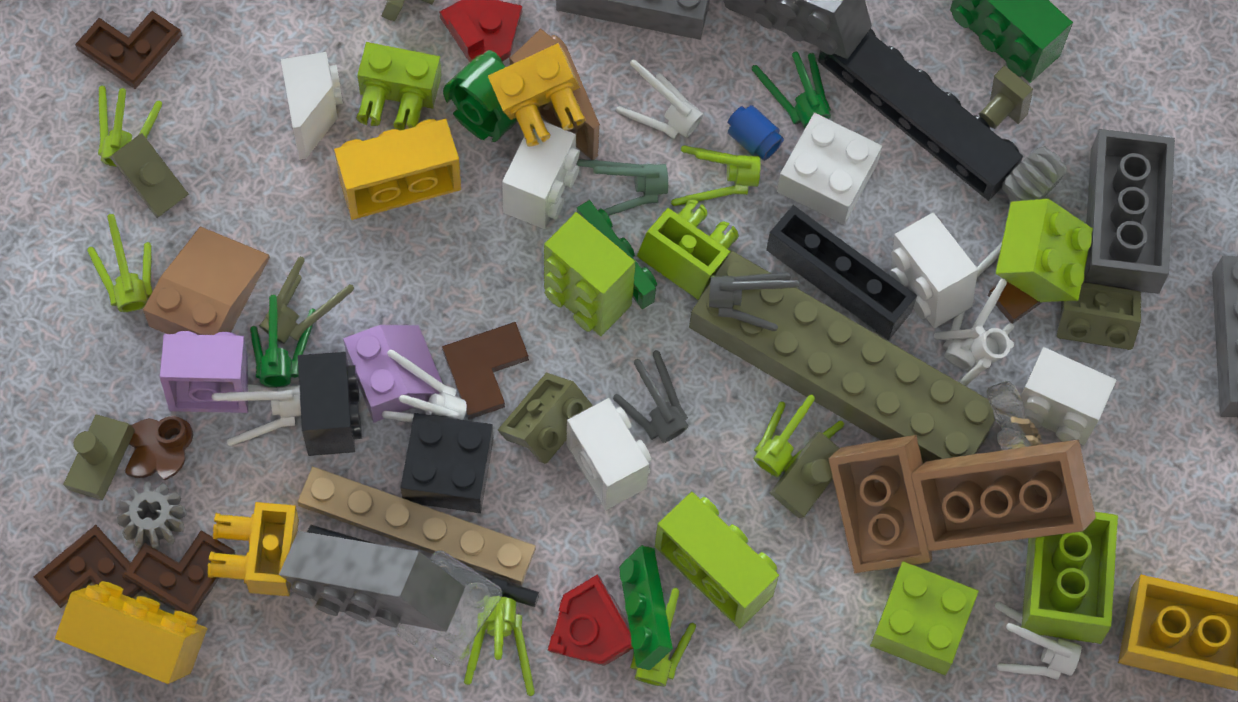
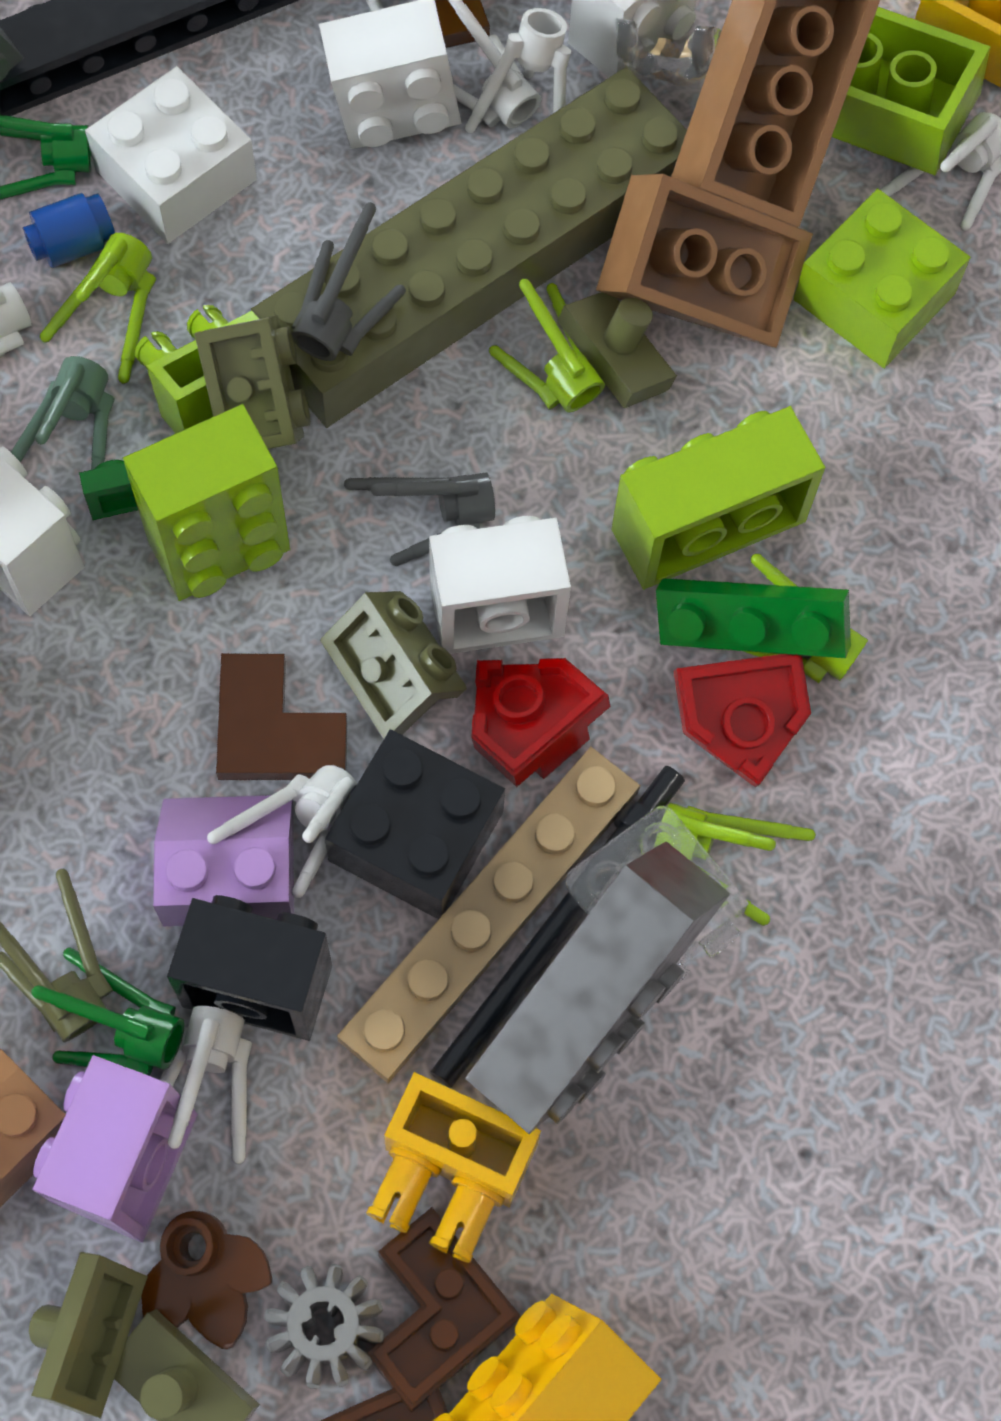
camera: 70 degrees left, 0 degrees up
(107, 397) = (86, 1334): none -> olive tile
(541, 505) = (533, 715): none -> red plate
(673, 269) = (251, 368): none -> olive bracket
(841, 272) = (324, 195): black brick -> none

